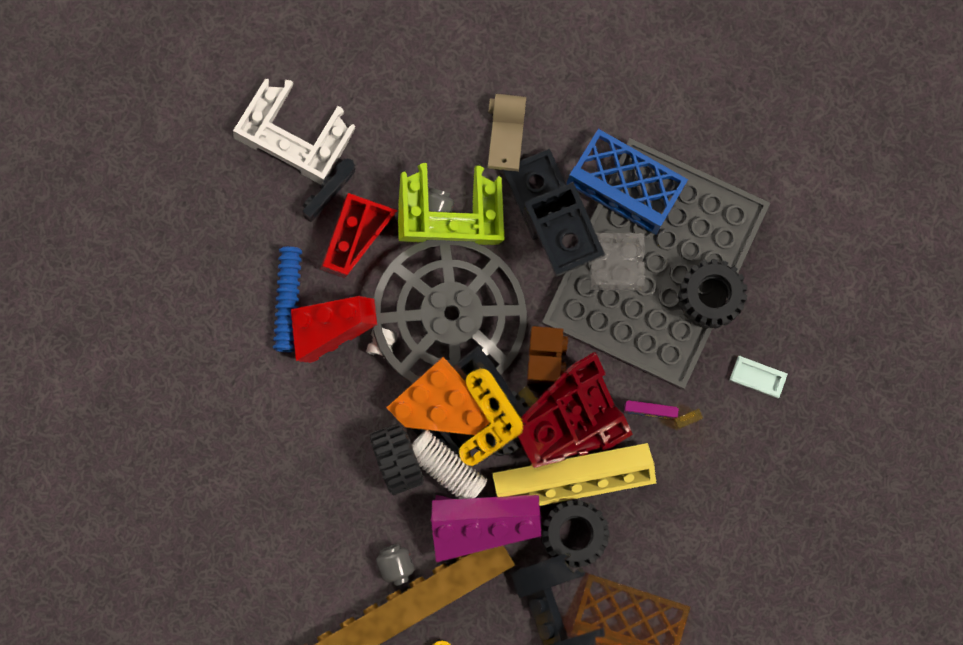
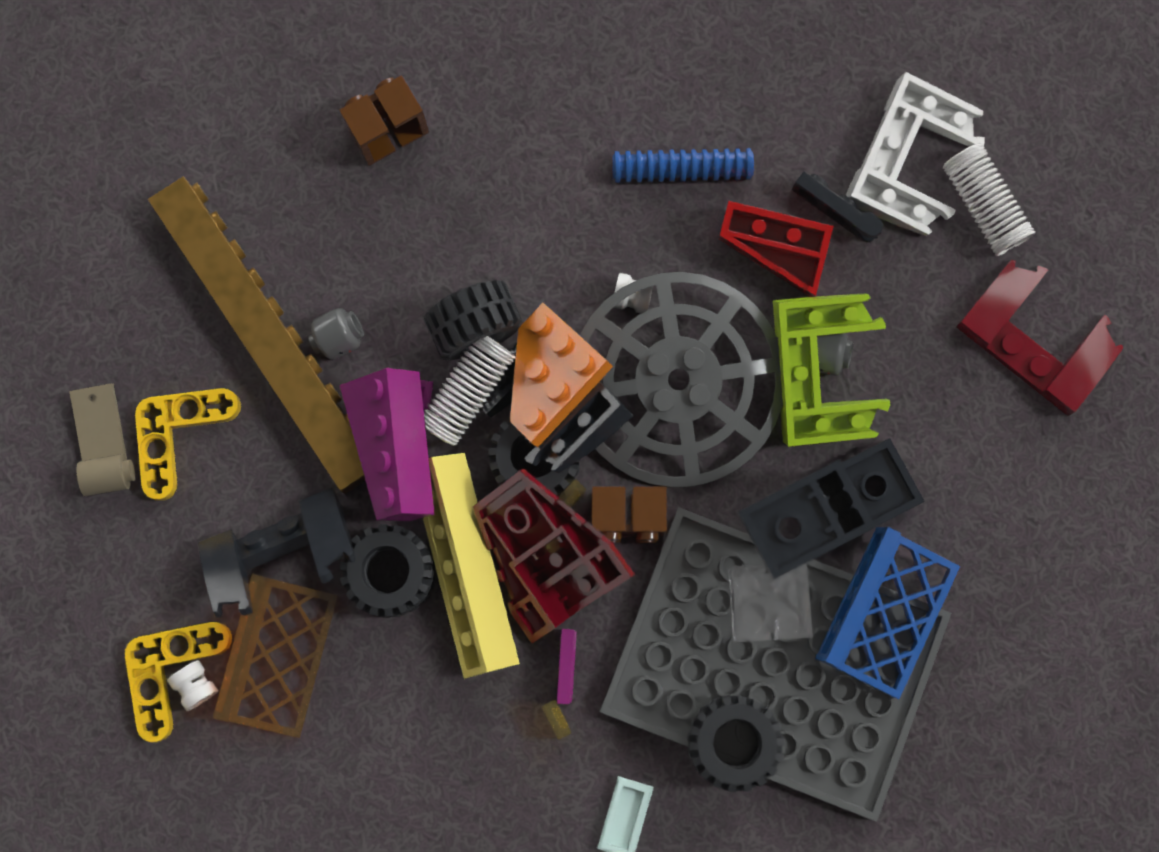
camera: 90 degrees right, 0 degrees up
(229, 505) = (394, 103): none -> reddish brown piece
(329, 324) = (649, 218): red wedge -> none
(357, 58) = (975, 159): none -> white piece
(470, 45) = (1059, 383): none -> dark red wedge
(497, 426) = (521, 447): yellow beam -> none
(506, 131) = (943, 441): dark tan door -> none

